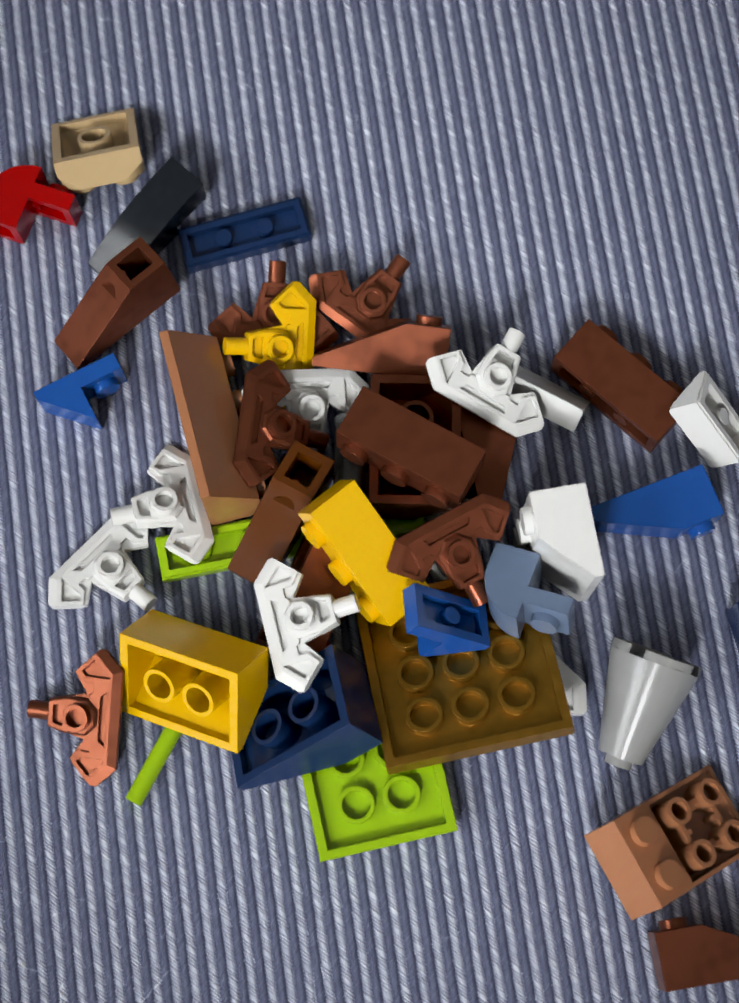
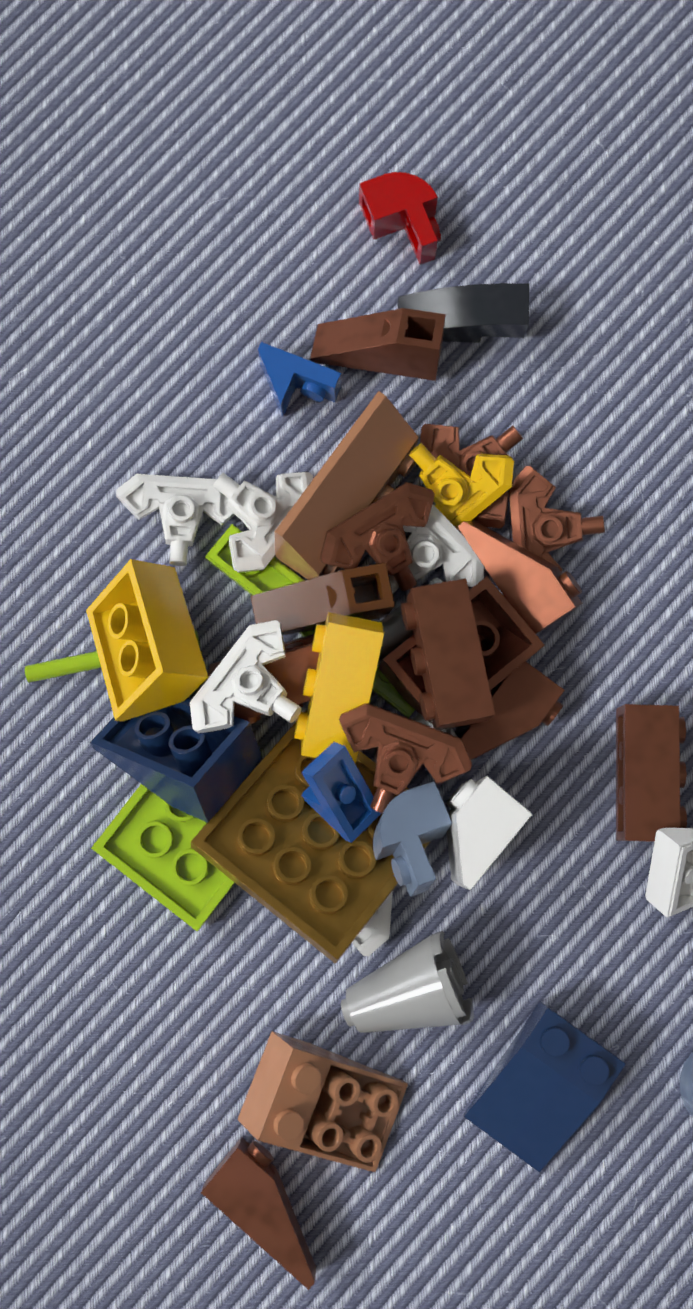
camera: 50 degrees right, 5 degrees up
(90, 716) = (61, 590): piece -> none
(97, 151) = (488, 227): tan slope -> none
(244, 235) = (520, 390): dark blue tile -> none
(489, 386) = (554, 673): white piece -> none
(554, 401) = (587, 720): white slope -> none
(664, 508) = (579, 889): blue slope -> none

